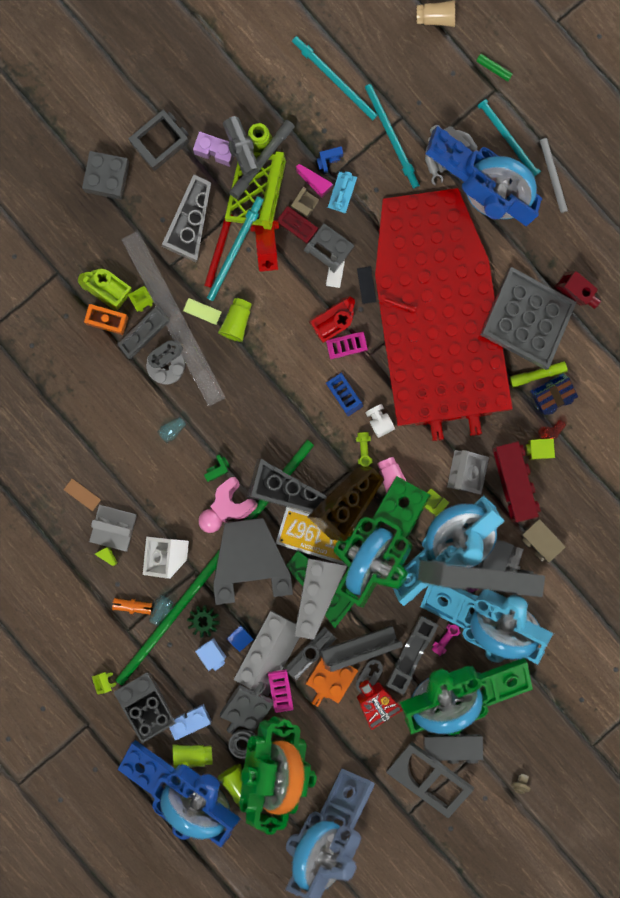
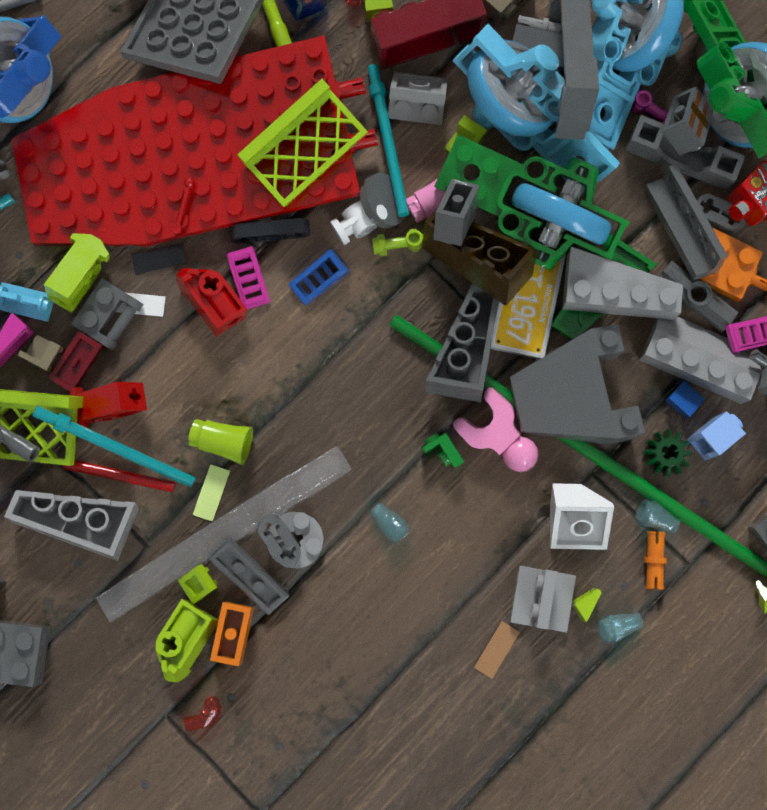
camera: 95 degrees left, 5 degrees down
(54, 299) = (206, 717): none -> clear red arm
(90, 577) = (616, 627): none -> clear light blue cone
(359, 229) = (76, 271): none -> lime piece
(374, 488) = (456, 212): none -> dark grey brick
(378, 347) = (270, 231): none -> black beam
(393, 441) = (379, 200): none -> dark grey tile
(431, 656) = (688, 121): none -> dark grey brick
(447, 380) = (285, 125): none -> lime fence
(473, 444) = (378, 94): none -> teal bar

